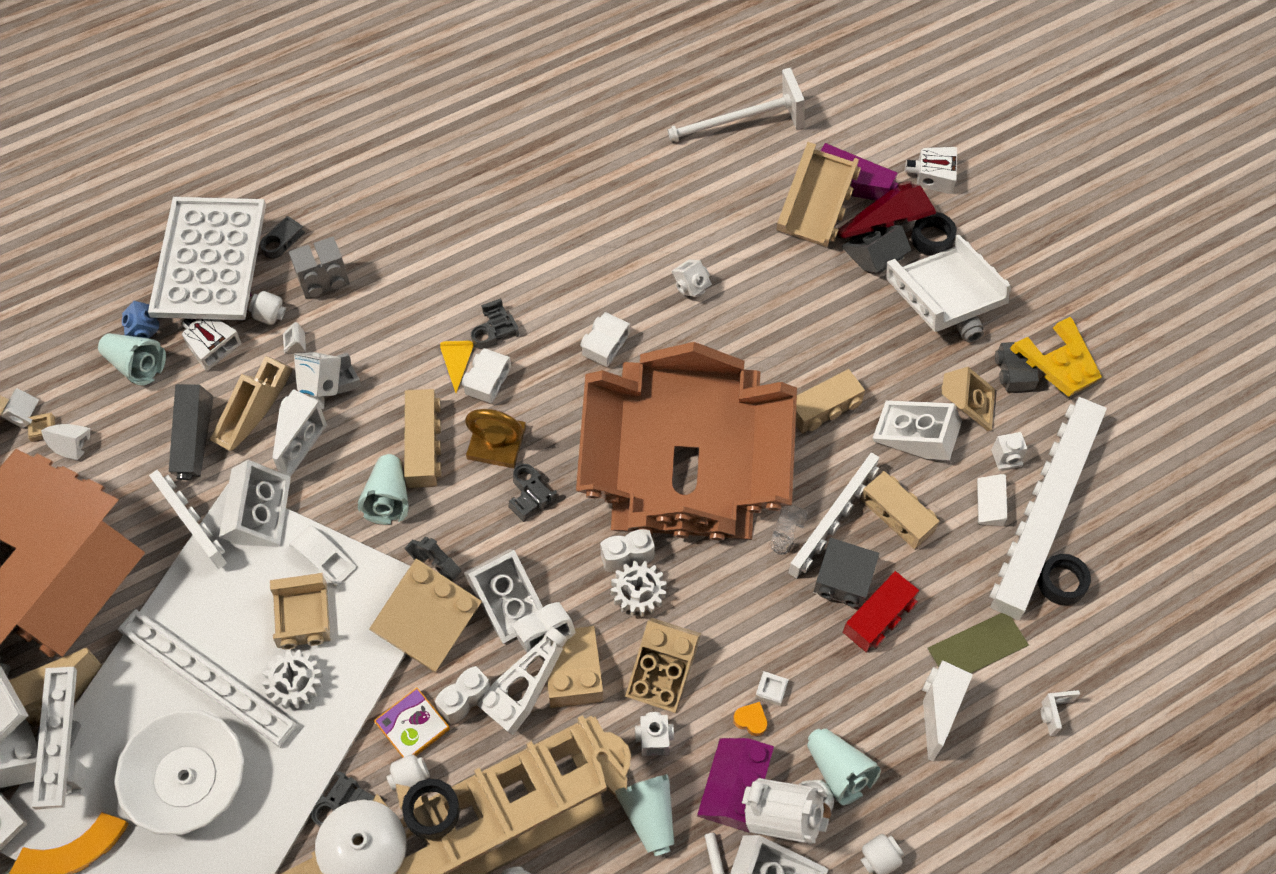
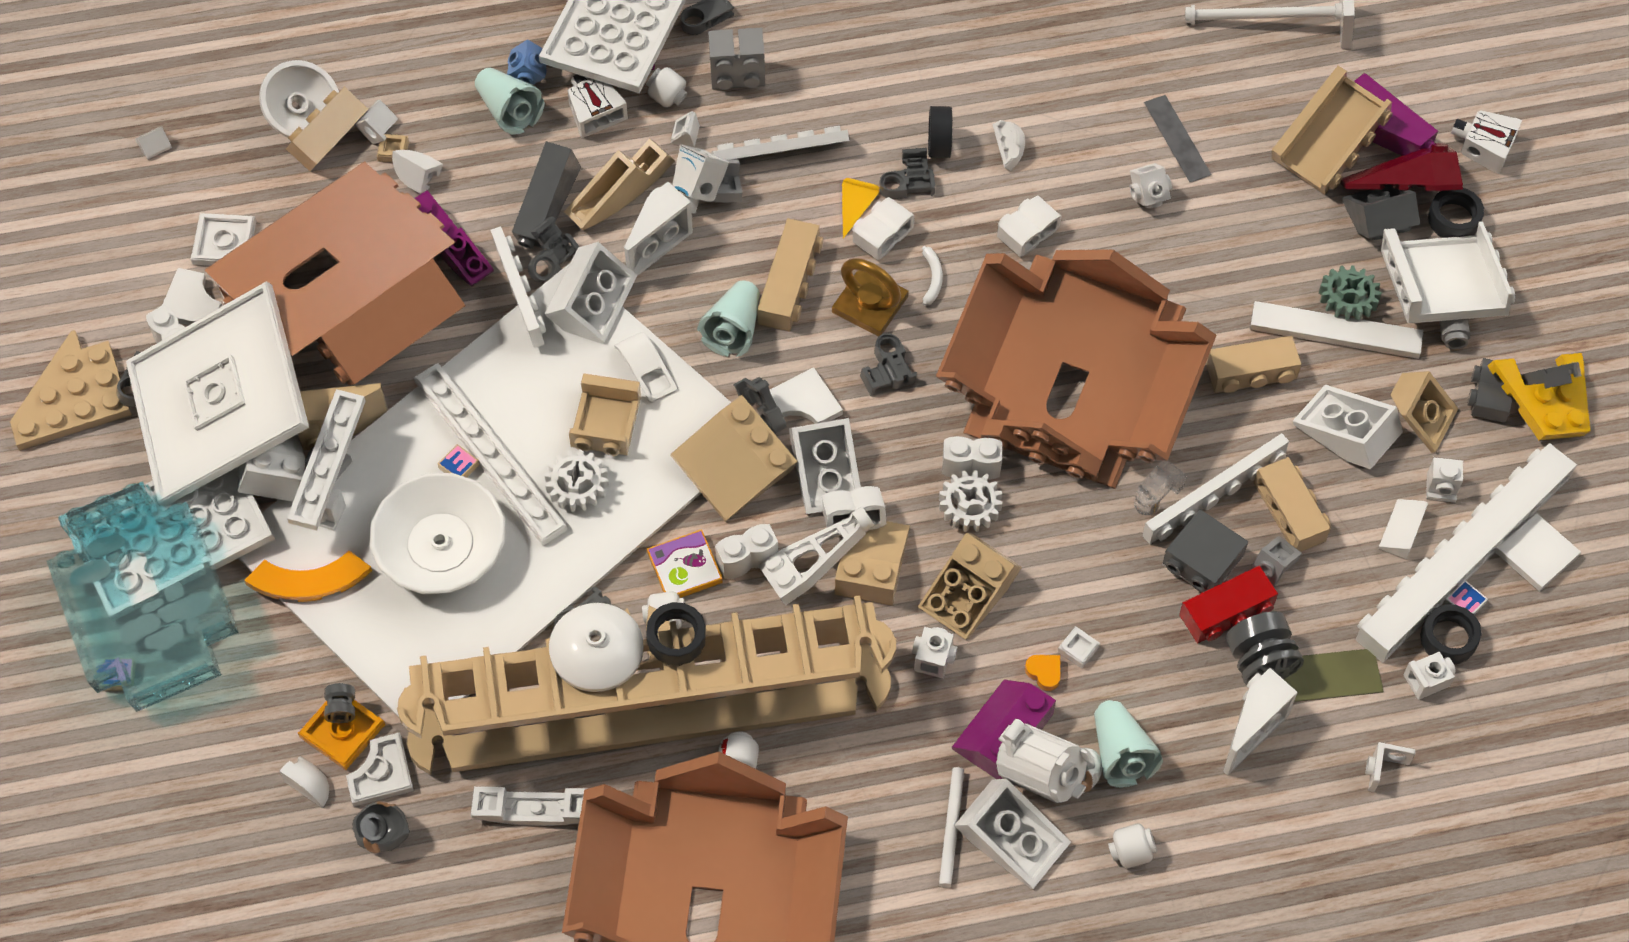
camera: 20 degrees right, 0 degrees up
(131, 503) = (463, 255): none -> magenta slope
(180, 696) = (458, 462): none -> tile
(214, 475) = (557, 249): none -> dark grey piece
(378, 328) = (781, 143): none -> white plate
(470, 539) = (807, 397): none -> white tile
(508, 282) = (940, 131): none -> black tyre
(544, 402) = (937, 275): none -> white piece
(567, 275) = (1010, 142): none -> white plate
(650, 812) = (902, 724): light aqua cone -> none
(697, 234) = (1177, 138): none -> flat silver sticker
(877, 353) = (1337, 331): none -> white tile
(878, 320) = (1350, 293): none -> sand green gear
(904, 559) = (1276, 559): none -> light grey bracket
(923, 638) = (1264, 644): none -> dark grey wheel
(1061, 619) = (1426, 682): none -> white brick
(1063, 341) = (1553, 376): none -> dark grey piece
(1064, 544) = (1467, 597): none -> tile
(1102, 488) = (1538, 552): none -> white tile

